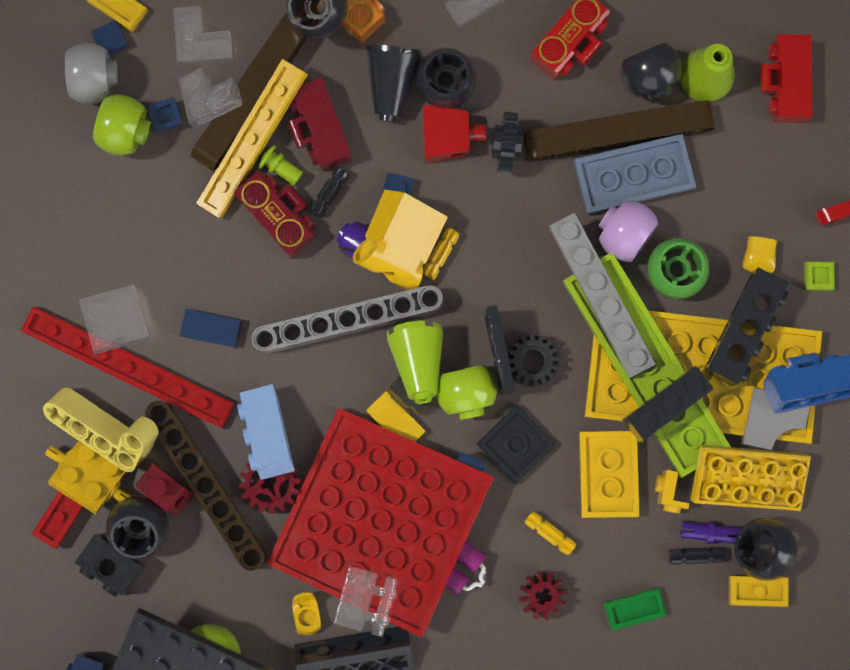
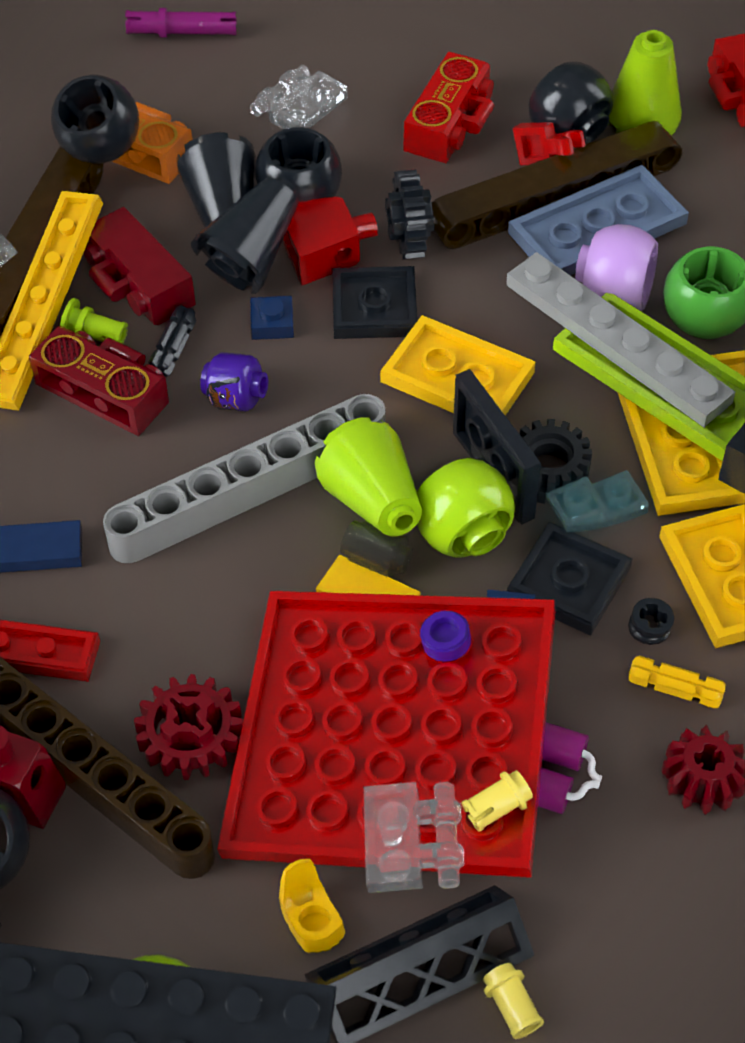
camera: 15 degrees left, 30 degrees down
(265, 432) = (162, 642): light blue brick -> none
(397, 132) = (249, 234): none -> black cone
(400, 239) = (297, 345): yellow piece -> none
(416, 597) = (498, 800): none -> light yellow pin
(424, 480) = (445, 636): none -> dark purple tile
(440, 253) = (362, 367): yellow axle -> none
(467, 195) = (374, 302): none -> black tile
(500, 273) = (435, 353): none -> yellow plate
(550, 398) = (598, 505): none -> clear light blue slope
(559, 484) = (639, 626): none -> black bush
(620, 98) = (540, 142): none -> red plate

